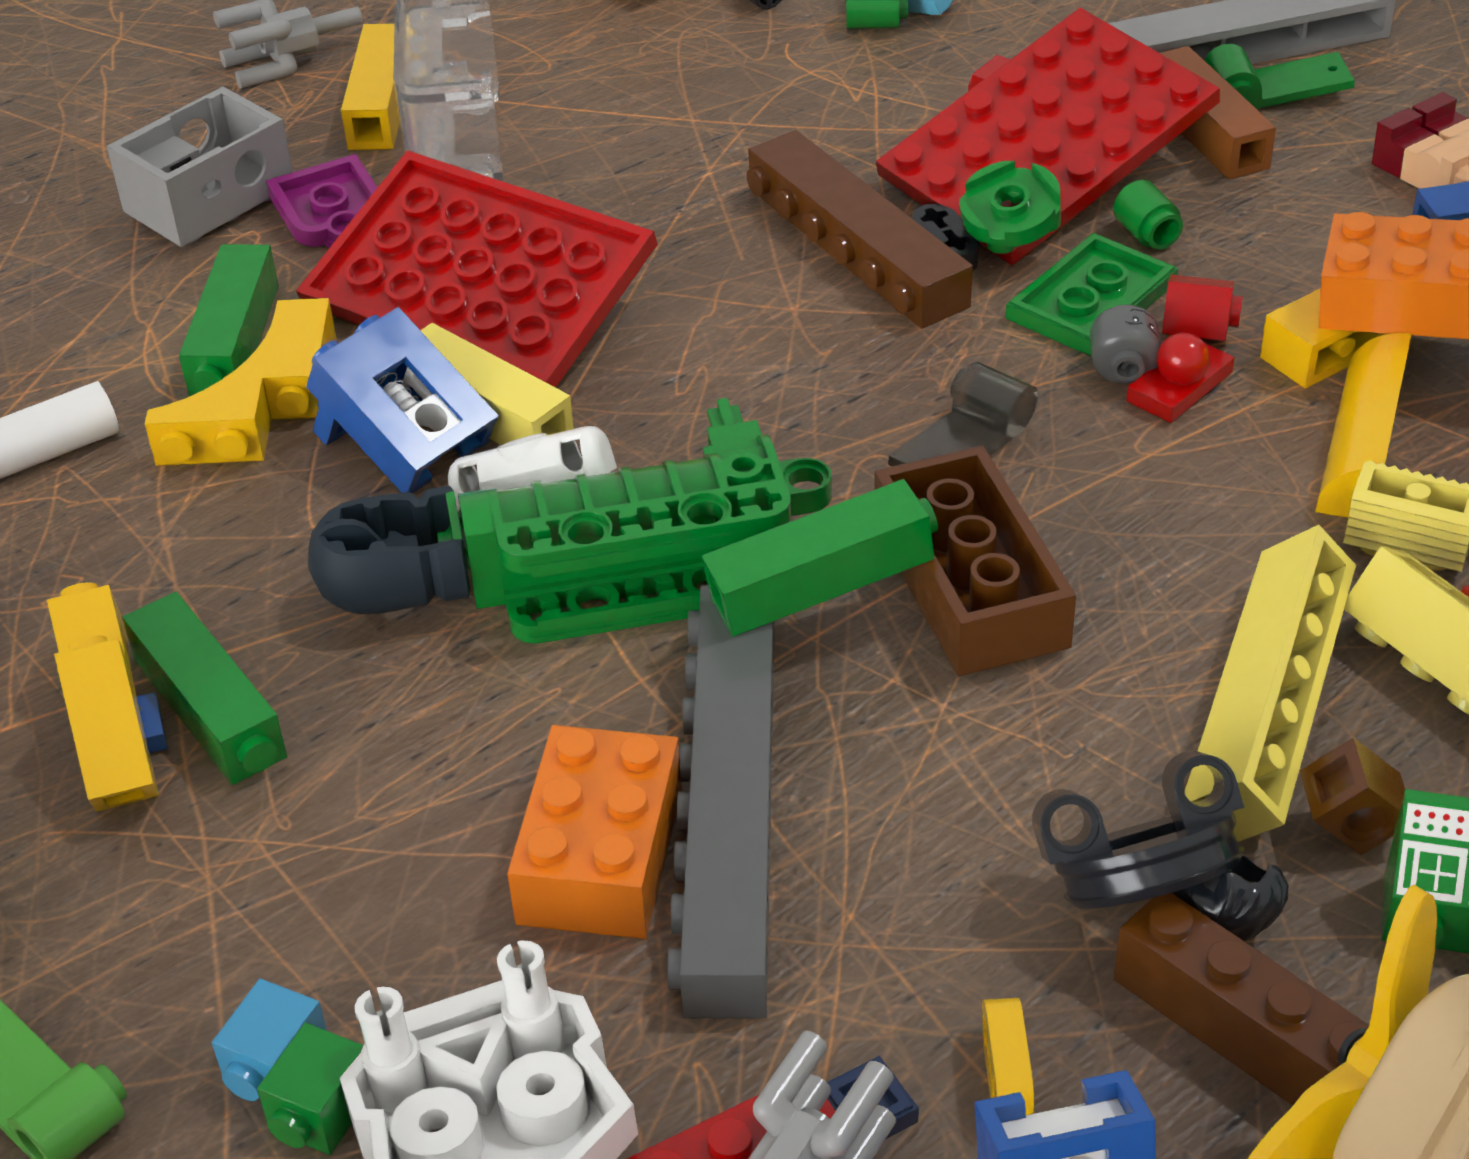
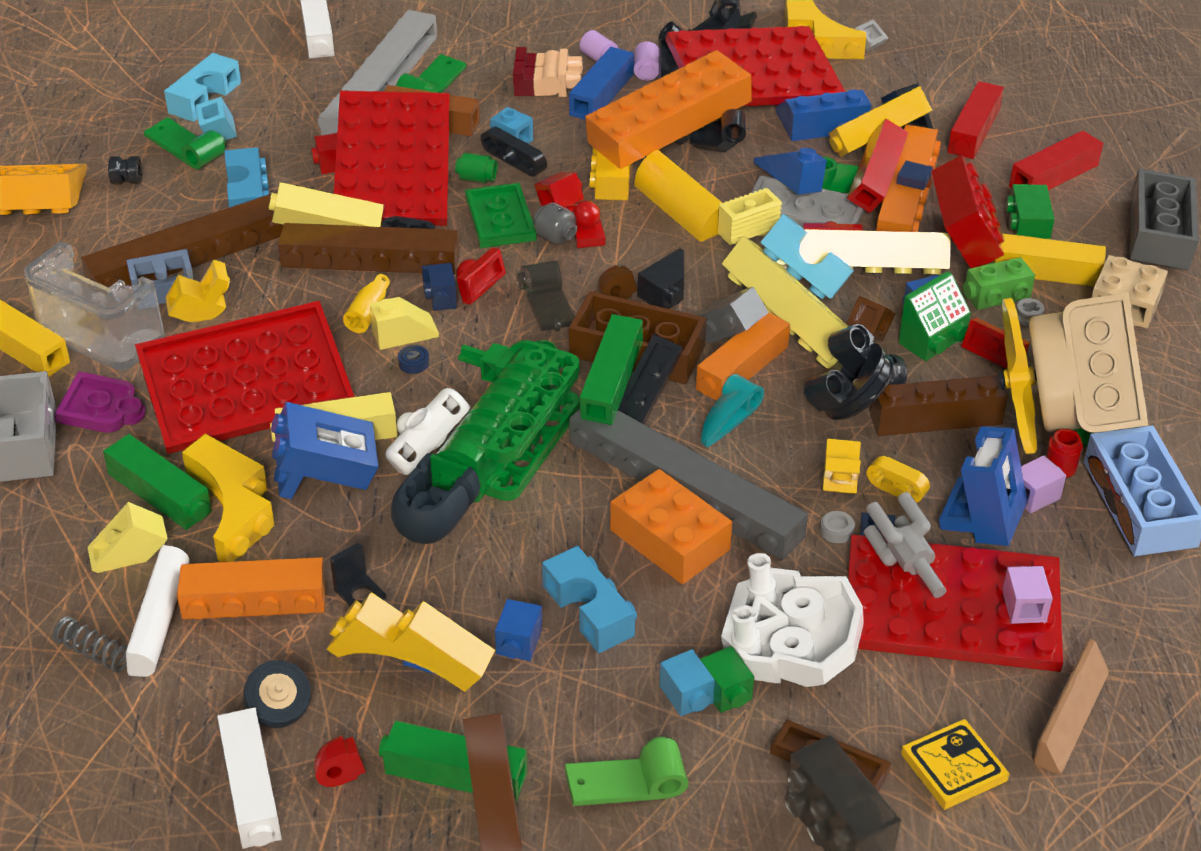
camera: 55 degrees left, 0 degrees up
(108, 503) = (252, 588): none -> orange brick
(109, 352) = (128, 539): none -> light yellow slope
(205, 688) = (470, 607): green brick -> none
(208, 568) = (350, 574): none -> black bracket
(231, 791) = (518, 630): none -> blue brick
(345, 869) = (576, 578): none -> dark azure arch
(558, 117) = (159, 265): none -> sand blue window
(589, 157) = (199, 300): none -> yellow brick
(695, 388) = (413, 359): none -> dark blue tile
(701, 99) = (203, 237): none -> reddish brown brick
(741, 333) = (400, 323): none -> light yellow slope
(747, 286) = (358, 314): none -> yellow piece
(830, 86) = (245, 175): none -> dark azure arch
(836, 1032) = (837, 527): none -> light grey tile
(847, 134) = (312, 206): none -> light yellow brick
(858, 324) = (439, 286): none -> dark blue brick
(865, 621) = (649, 378): none -> black plate
(926, 343) = (479, 275): none -> red tile
(946, 965) = (841, 466): none -> yellow brick
(973, 757) = (738, 401): none -> teal piece
(1010, 226) = (437, 208): green plate -> none
(1078, 477) = (617, 282): none -> reddish brown piece
(1083, 699) = (743, 354): none -> orange brick
(1132, 623) = (733, 314): none -> dark grey brick
(1155, 519) = (663, 281): none -> black slope
(1234, 224) = (527, 158): none -> black beam
(1276, 195) = (514, 123): none -> dark azure brick
(1364, 584) = (784, 243): none -> medium azure arch

